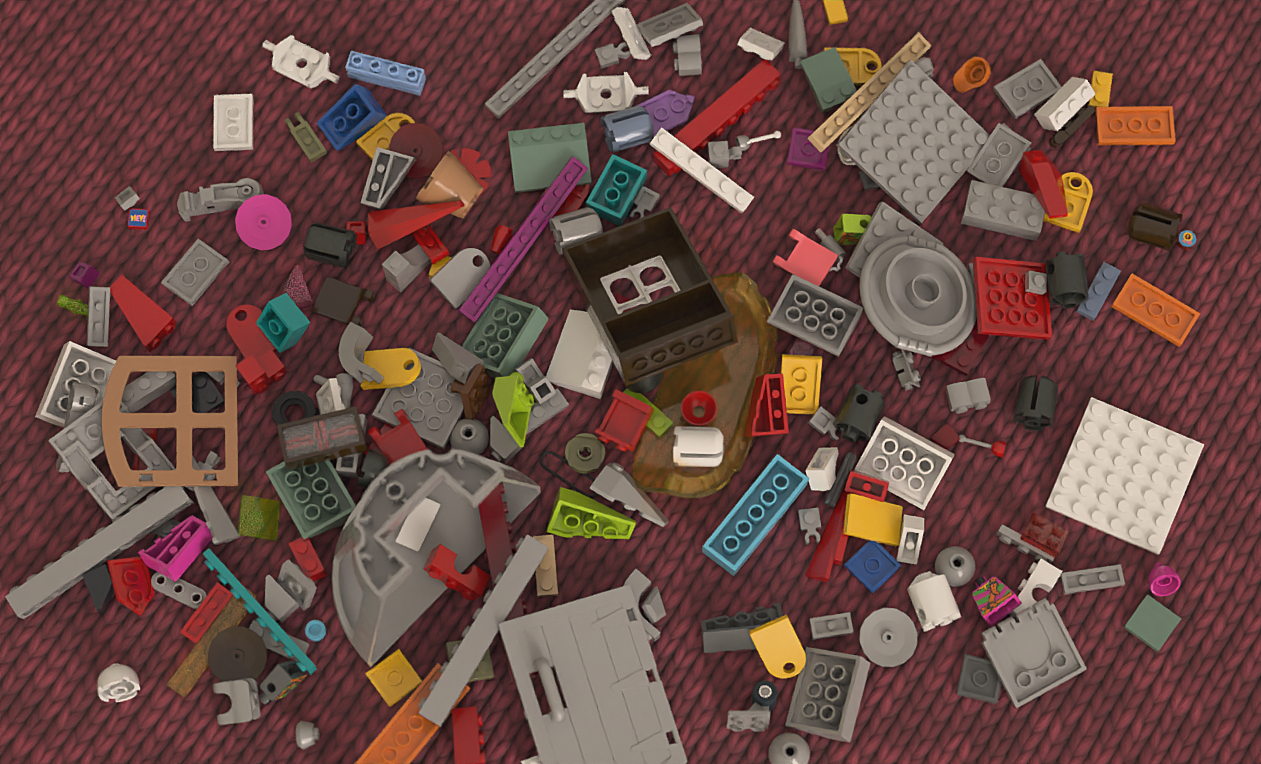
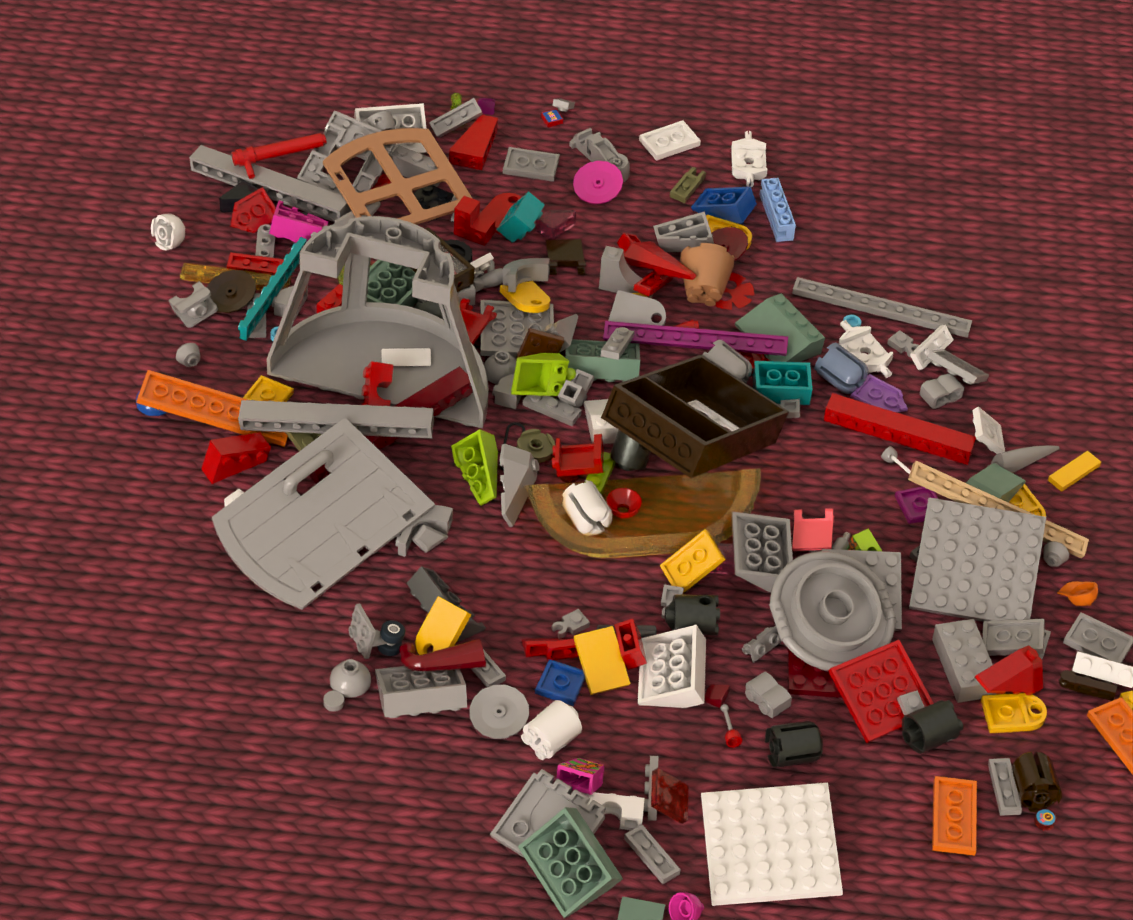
camera: 60 degrees right, 25 degrees down
(60, 552) = (252, 154): none -> red cylinder
(281, 681) = (223, 322): dark grey torso -> none
(296, 584) = (310, 302): light grey plate -> none
(329, 244) = (606, 224): pearl dark grey cylinder -> none
(502, 315) = (617, 343): none -> light grey plate
(546, 571) = (422, 456): tan plate -> none
(560, 84) = (853, 320): none -> medium azure tile
(701, 170) = (841, 431): white plate -> none
(720, 154) = (866, 441): light grey brick -> none
(755, 515) = (553, 575): medium azure brick -> none
(767, 408) = (653, 547): red wedge -> none
(819, 646) = (455, 657): none -> dark red animal
(822, 469) = (623, 608): white arch -> none
(910, 539) = (602, 697): white slope -> none
(955, 575) = (598, 742): light grey piece -> none
(978, 680) = (497, 798): dark grey tile -> none
(1084, 655) = (569, 861): none -> sand green slope
(1099, 291) = (941, 765): sand blue plate -> none
(1143, 253) = (1004, 786): none -> light grey plate

